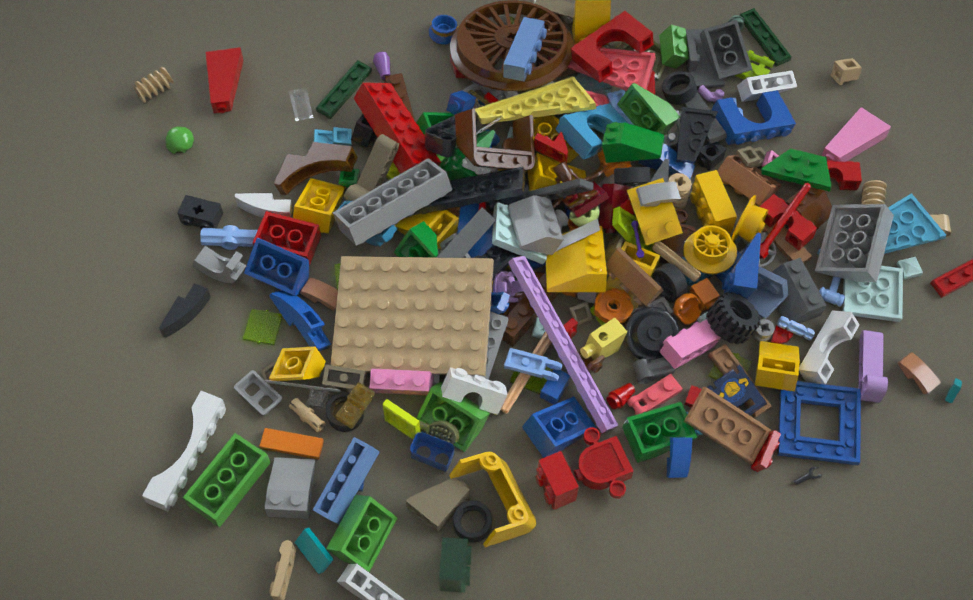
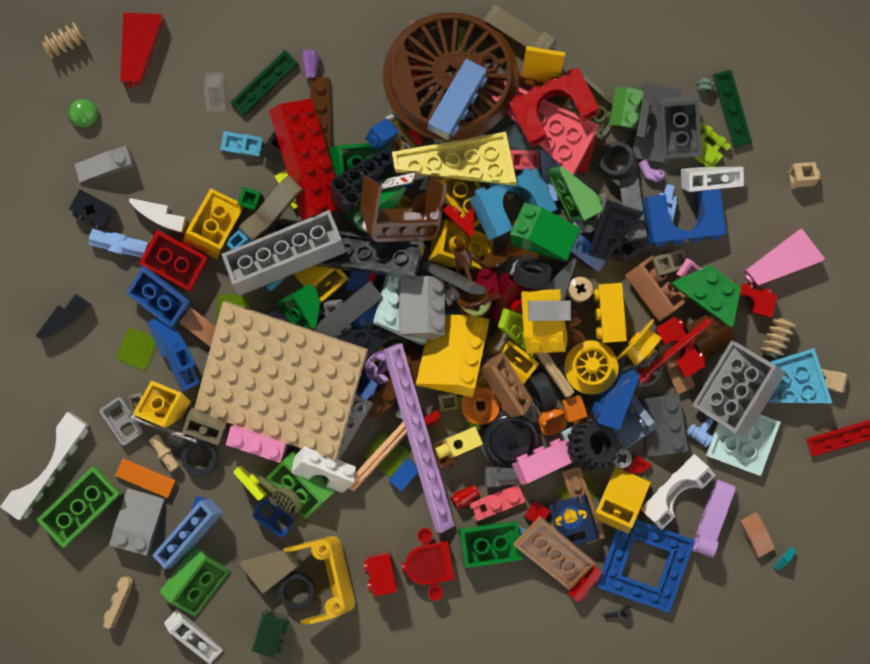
camera: 15 degrees right, 25 degrees up
(207, 174) = (104, 164): none -> light grey slope
(219, 267) = (102, 277): light grey arch -> none
(313, 550) = (148, 588): teal tile -> none
(319, 159) = (221, 174): arch -> none
(355, 405) = (209, 460): clear yellow slope -> none
(442, 29) = (384, 28): blue piece -> none
(531, 364) = (383, 453): light blue hinge -> none
(557, 426) = (398, 516): blue slope -> none
(579, 233) = (464, 325): white sticker -> none
(640, 254) = (519, 359): dark purple hinge -> none
(680, 457) = (501, 573): blue slope -> none
(796, 328) = (653, 463): light blue axle -> none
(910, 268) = (789, 419): light aqua tile -> none

